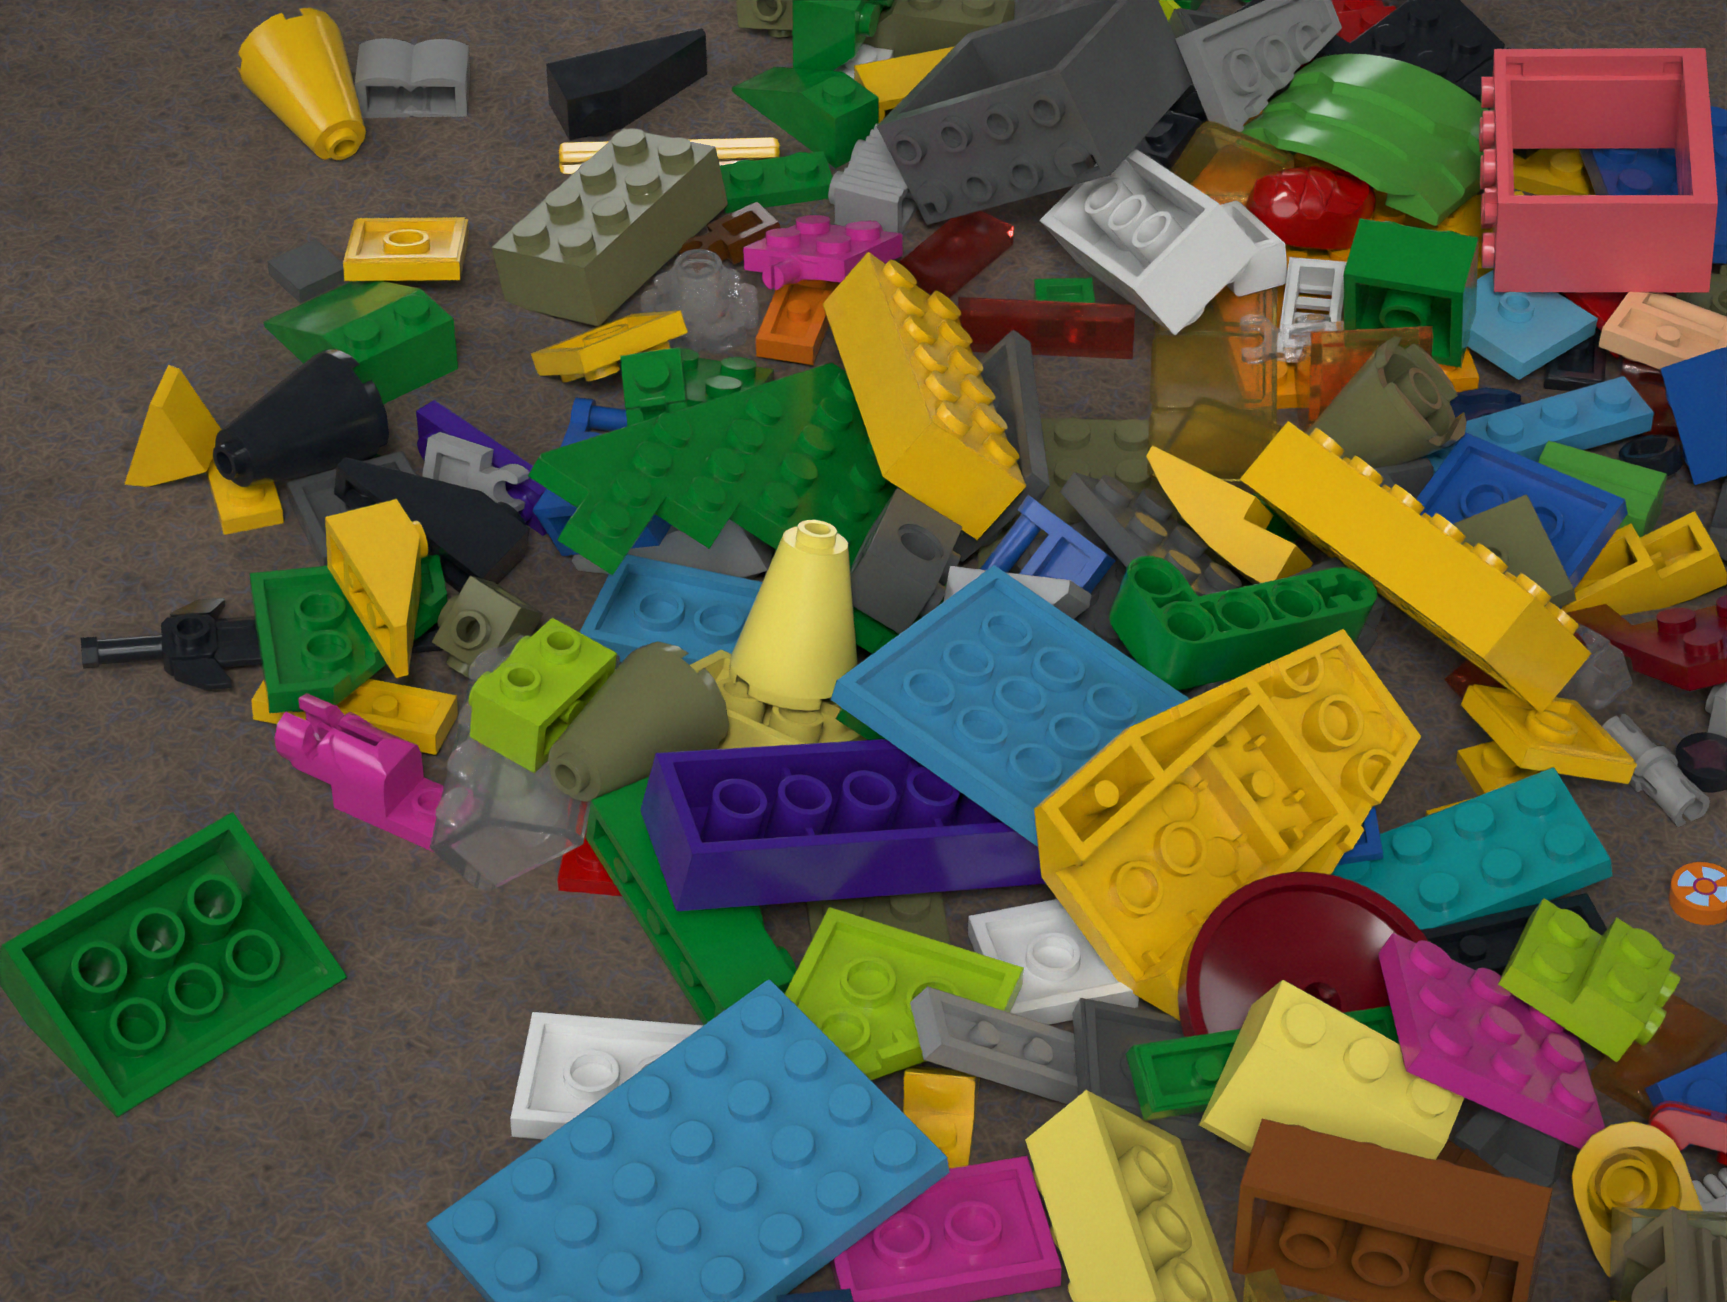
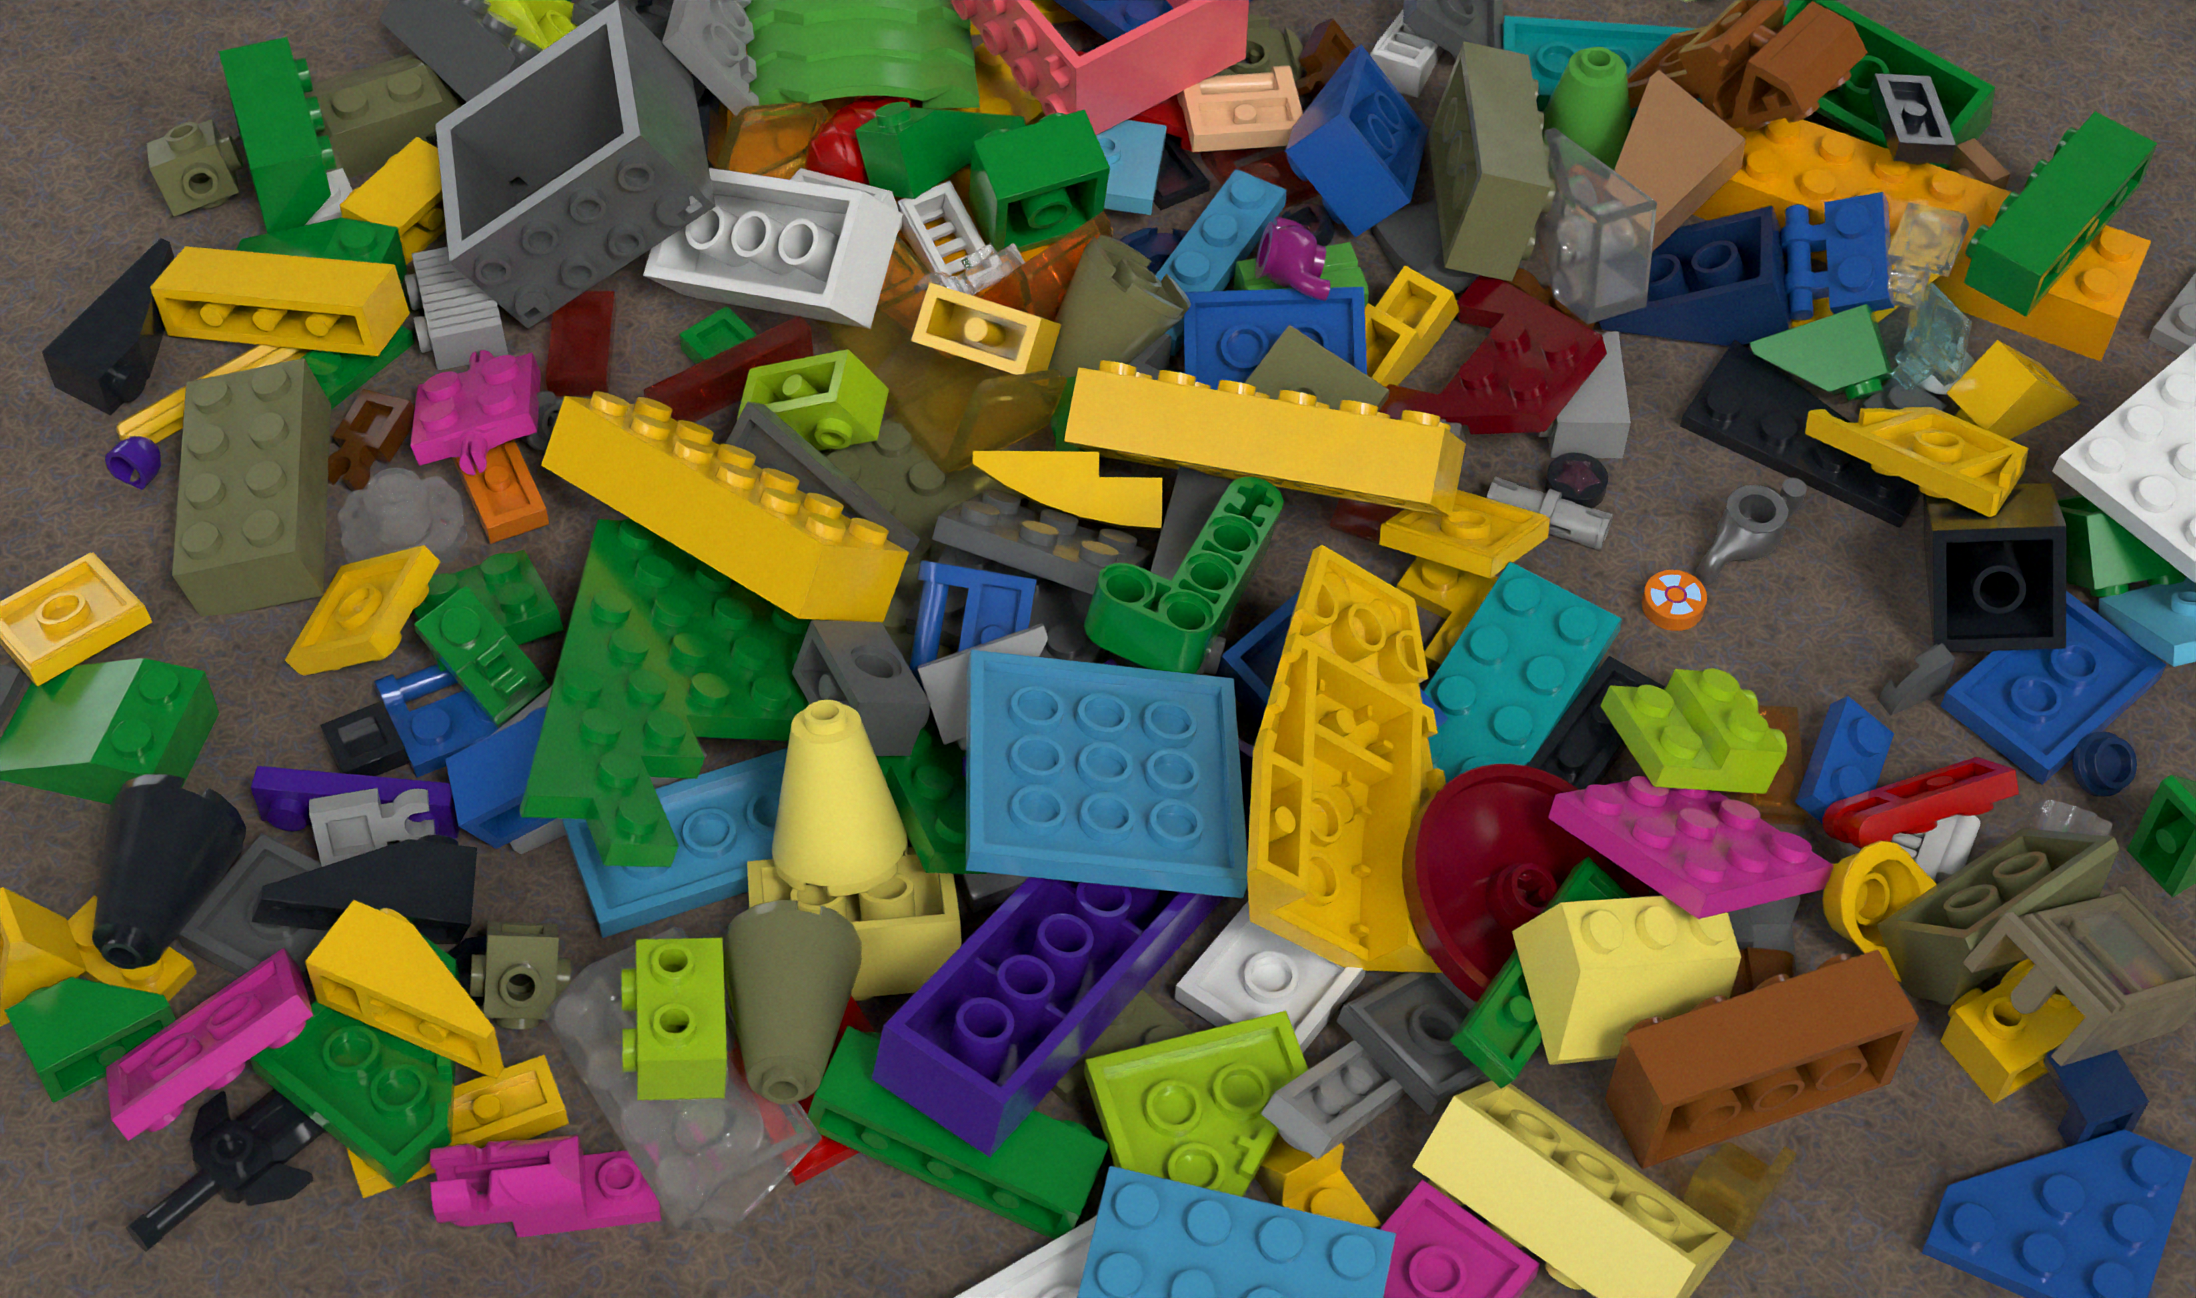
camera: 40 degrees left, 10 degrees up
(170, 511) = (83, 1028): none -> green slope
(226, 555) = (208, 1045): none -> dark pink plate
(532, 430) = (365, 742): none -> black plate
(551, 171) = (132, 454): none -> dark purple hinge
(749, 110) = (281, 300): none -> yellow brick
(1086, 370) = (822, 397): none -> lime brick
(1257, 372) = (985, 331): none -> yellow brick
(1325, 214) = (920, 147): none -> green slope
(1587, 449) = (1292, 258): none -> magenta piece

